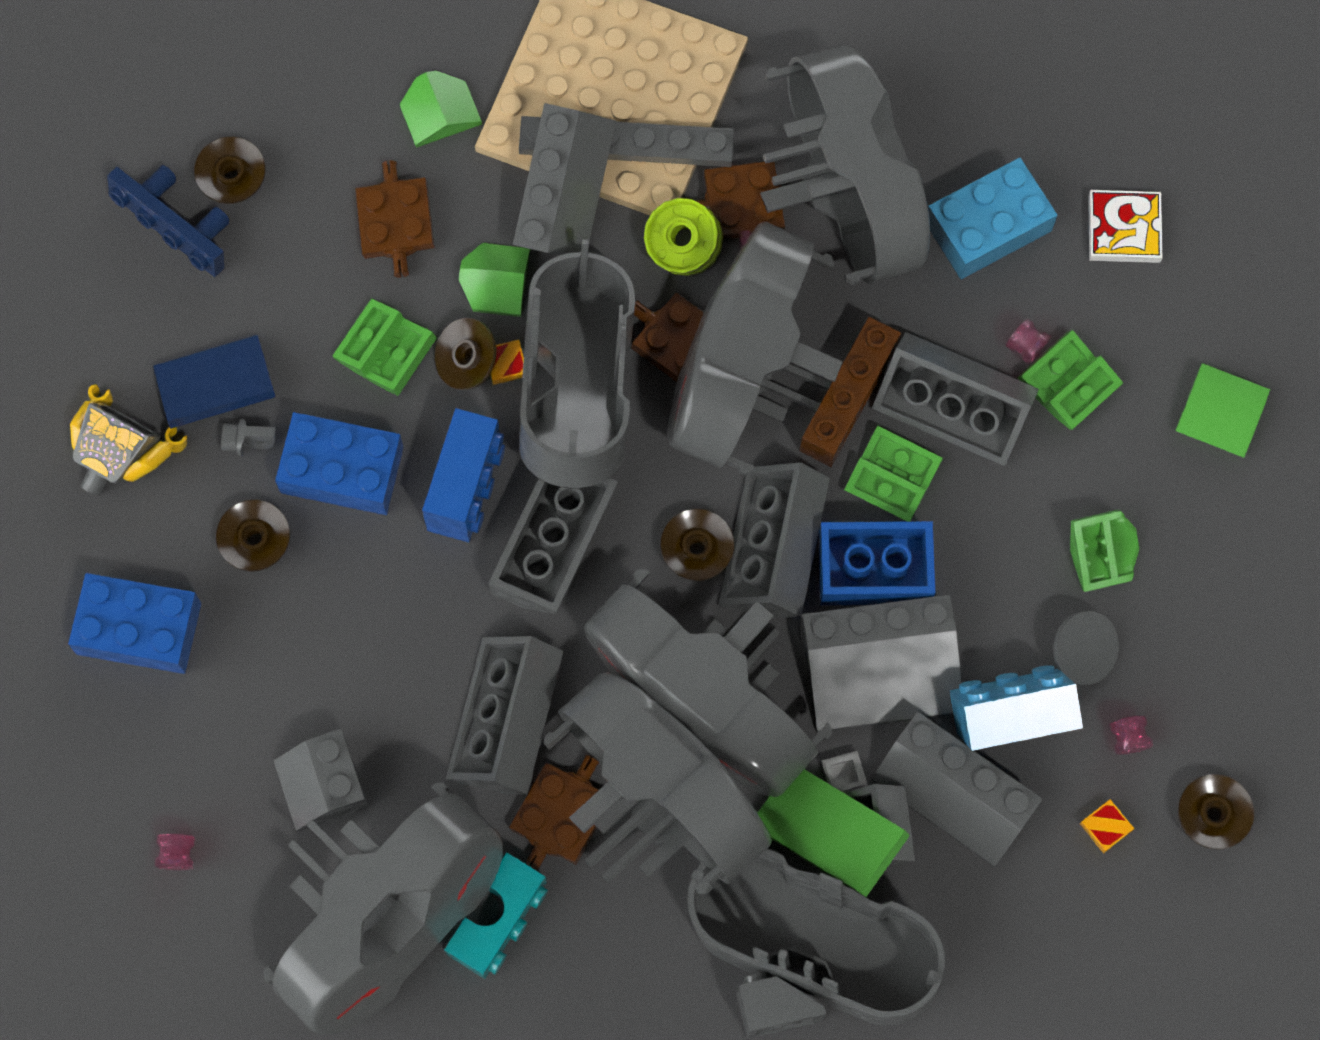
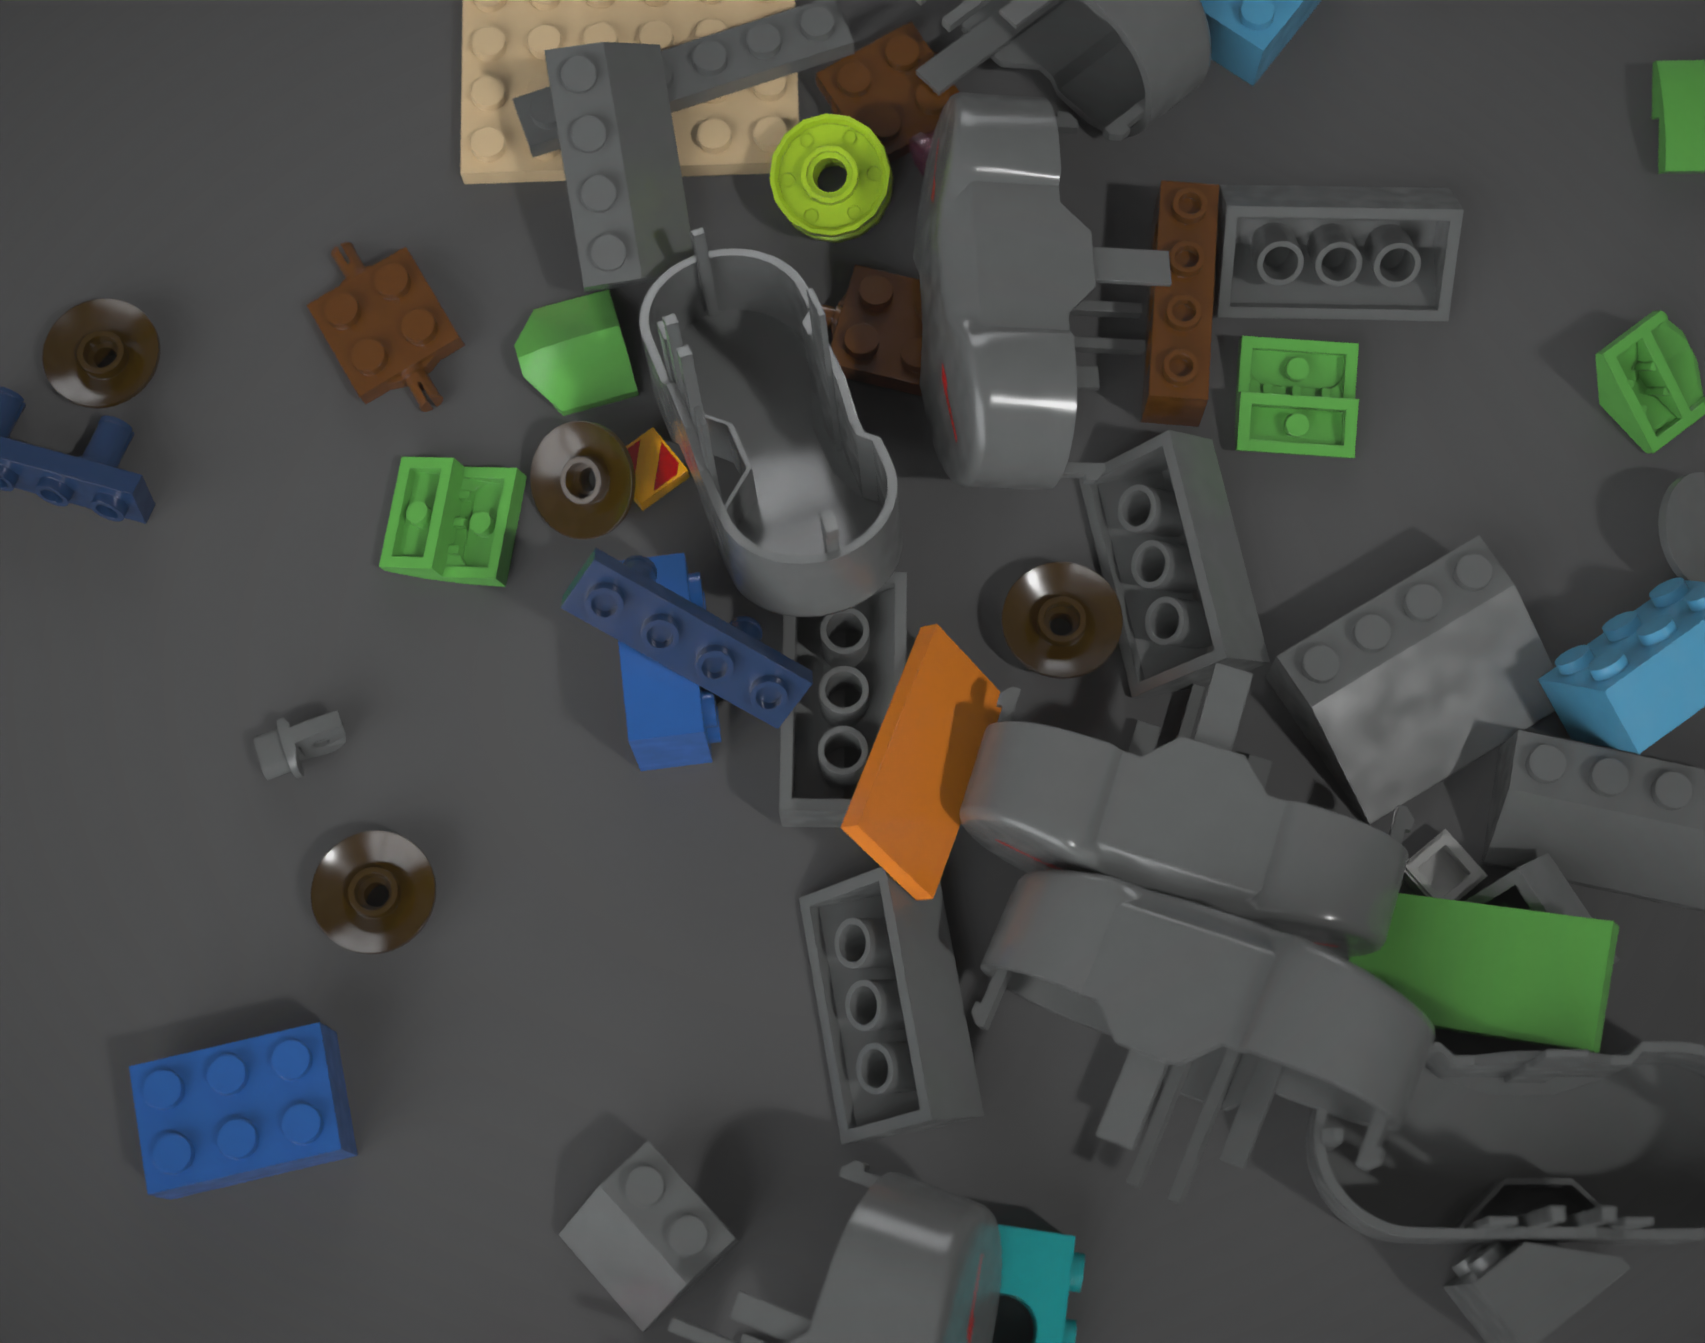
camera: 20 degrees left, 0 degrees up
(115, 445) = (94, 842): torso -> none
(214, 381) = (210, 680): dark blue tile -> none
(339, 463) = (461, 724): blue brick -> none
(438, 107) = (380, 142): bright green slope -> none
(476, 469) = (685, 637): none -> dark blue plate
(546, 813) = (1044, 1122): reddish brown plate -> none
(575, 588) = (922, 763): none -> orange tile
(875, 562) = (1343, 534): blue brick -> none
(1028, 341) = (1397, 129): clear pink wheel -> none
(1071, 380) = (1483, 159): bright green slope -> none

